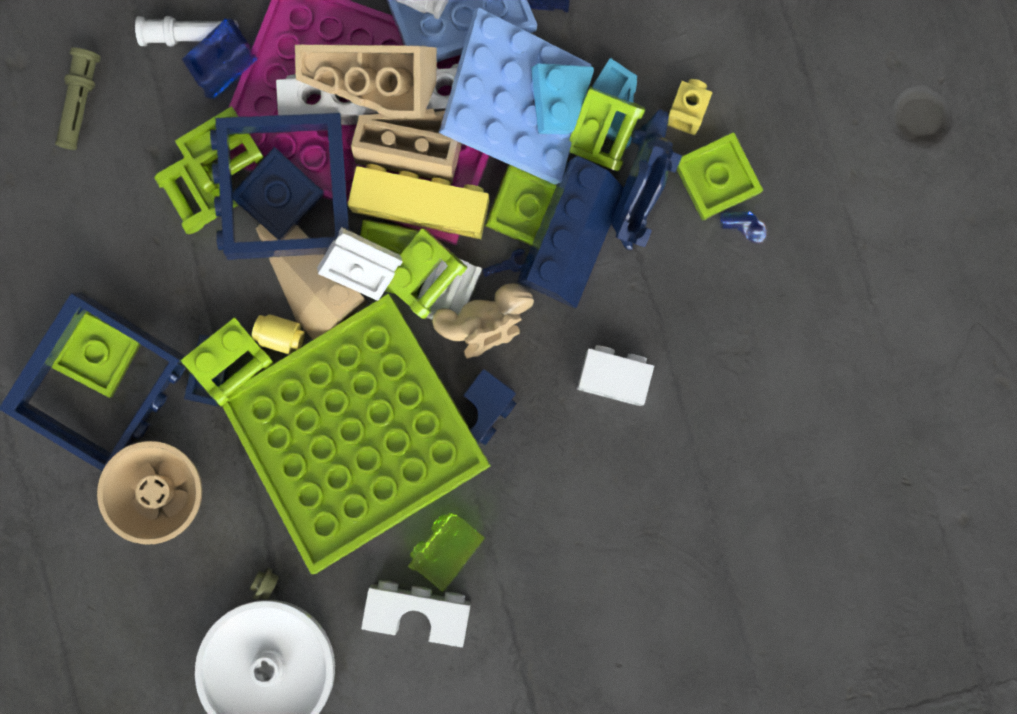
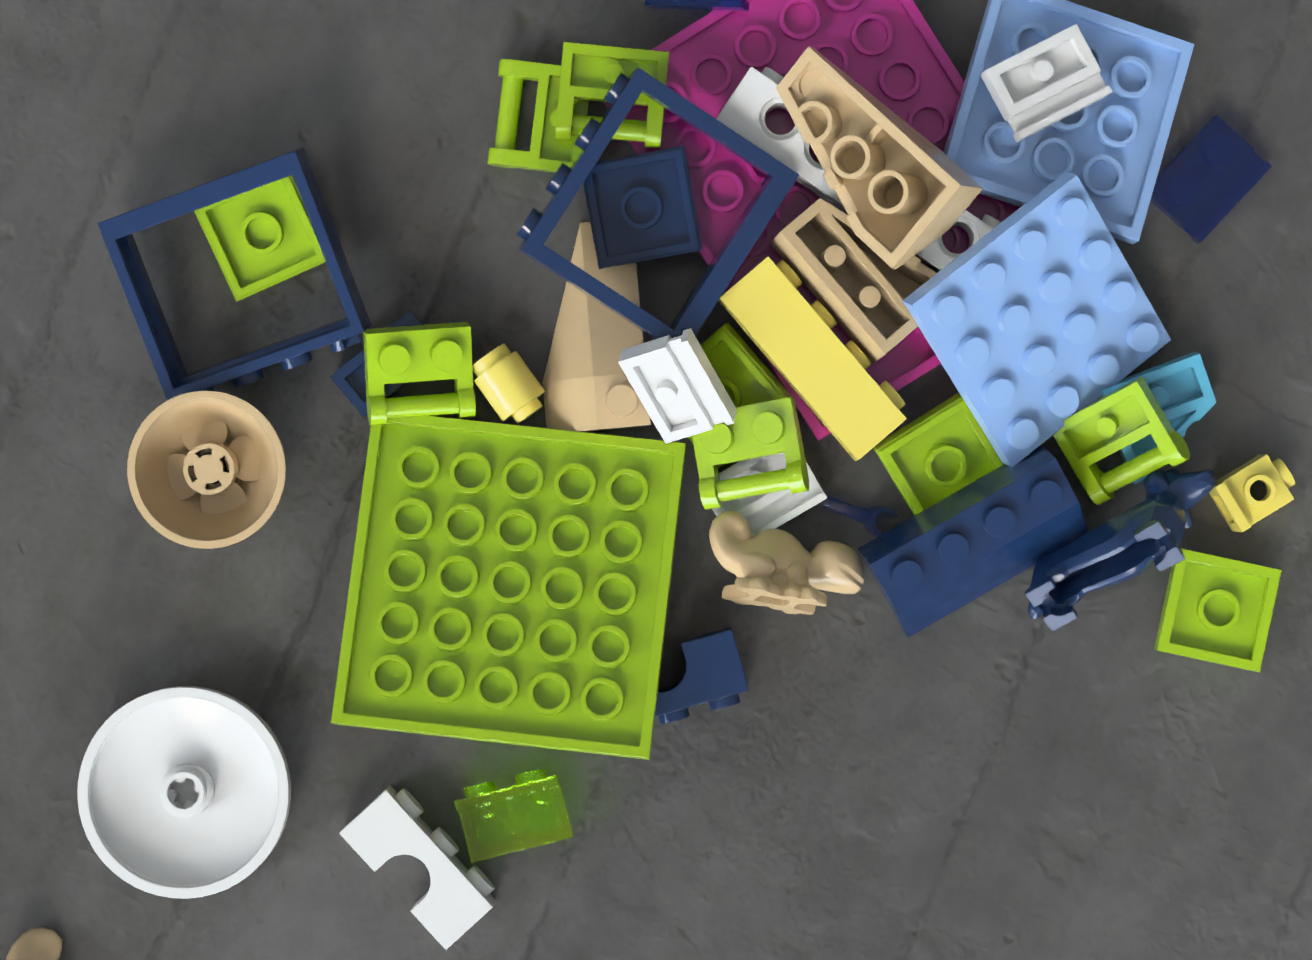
camera: 40 degrees right, 5 degrees up
(263, 584) = (257, 684): olive plate -> none
(559, 96) = (1093, 360): medium azure wing -> none
(615, 376) = (889, 763): white brick -> none
(747, 223) = (1207, 697): clear blue arm -> none

